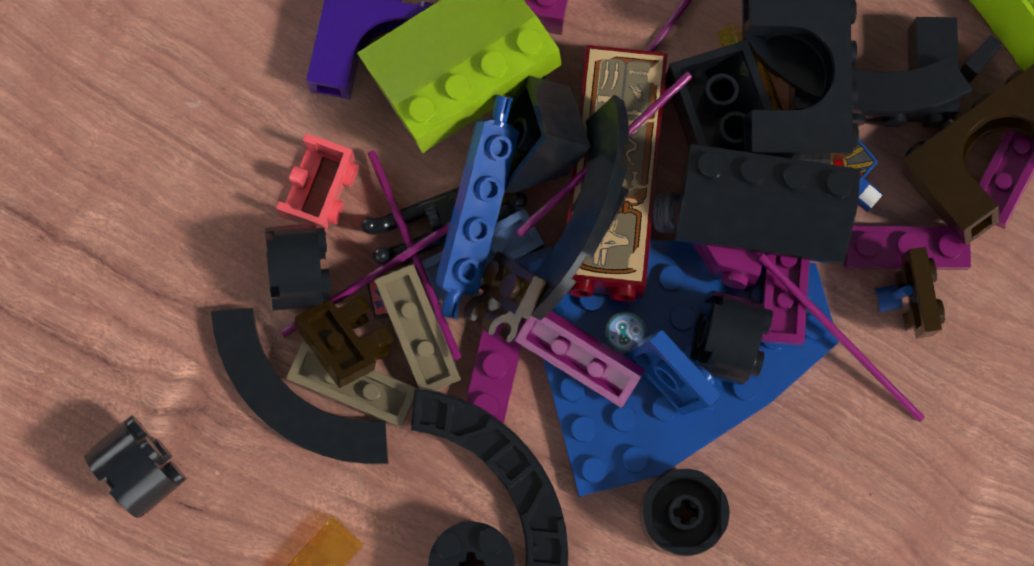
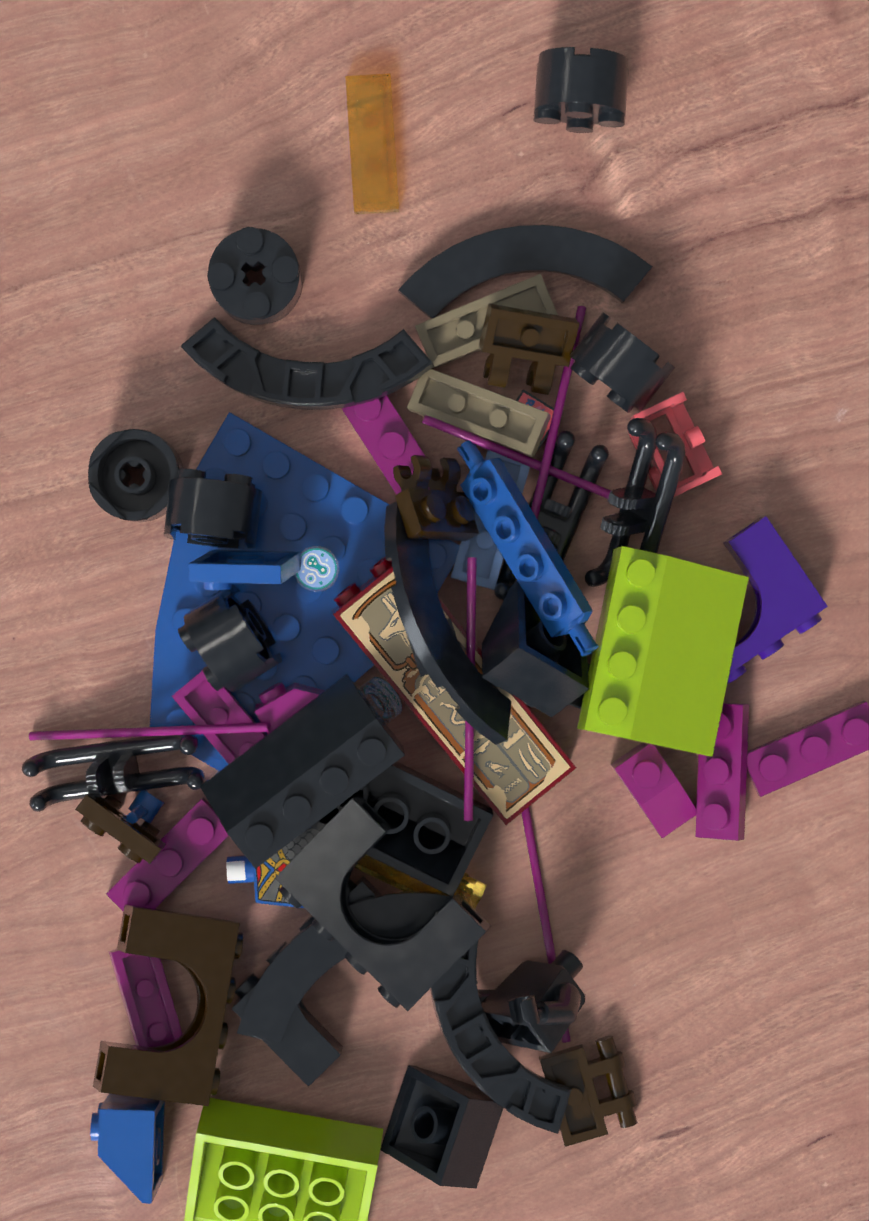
camera: 135 degrees right, 10 degrees up
(380, 166) = (639, 507): none -> black piece
(581, 356) = (328, 515): magenta plate -> none
(657, 432) = (213, 510): none -> black brick
(888, 338) = (113, 768): none -> black piece
(980, 58) = (259, 1072): black tile -> none

